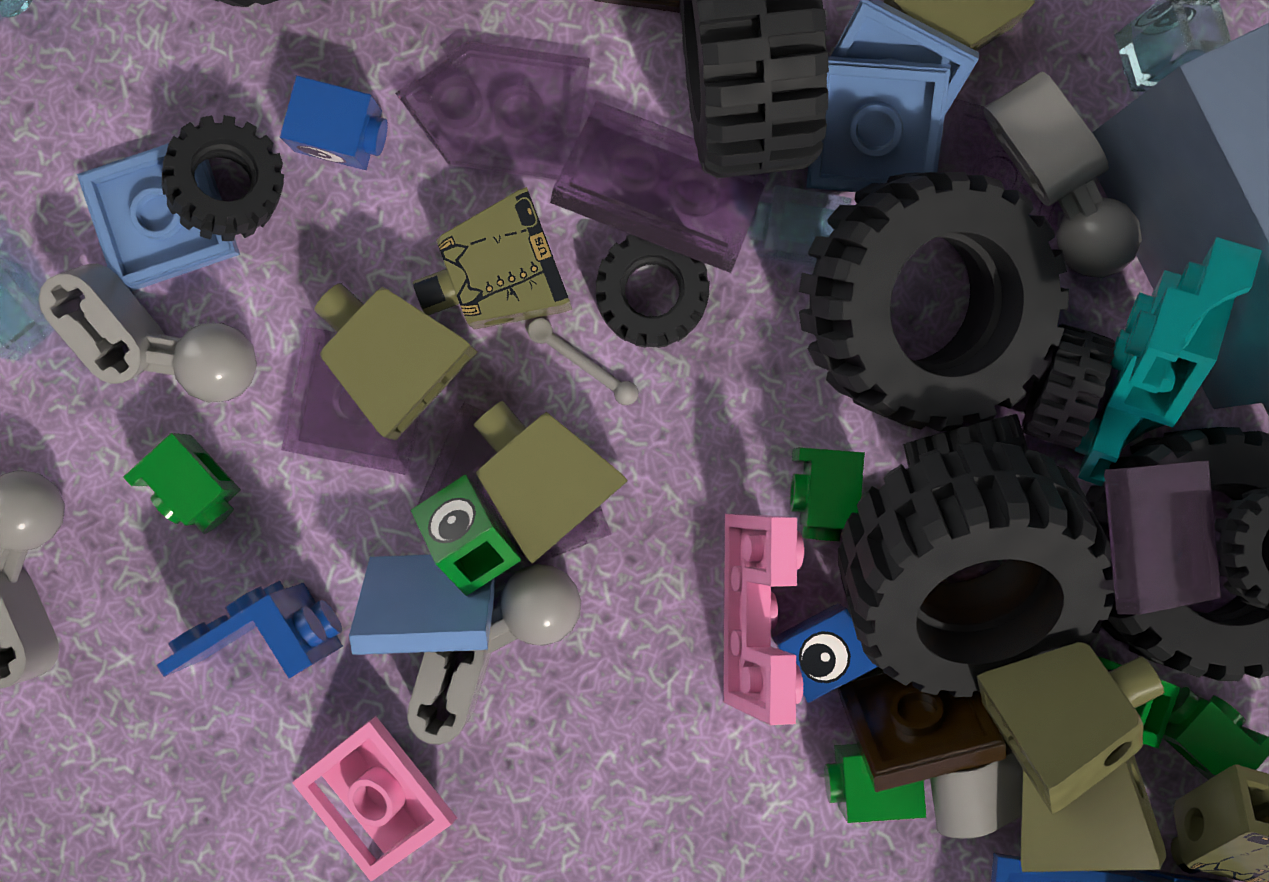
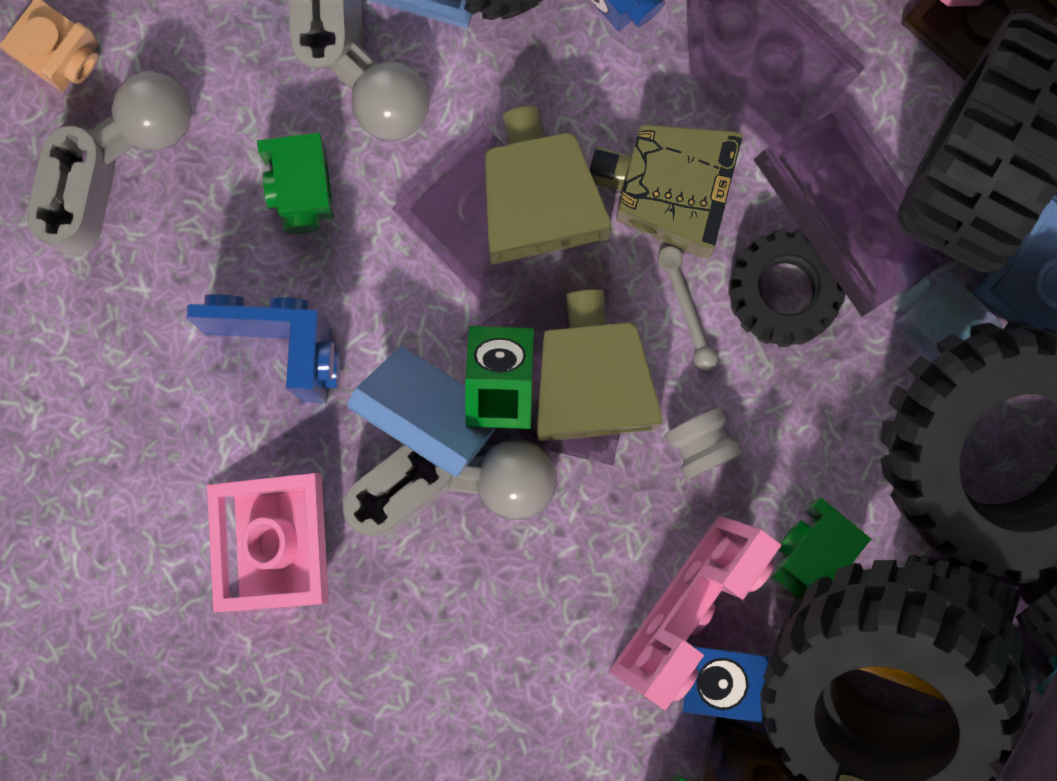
camera: 35 degrees right, 5 degrees down
(673, 467) = (703, 443): none -> light grey wheel

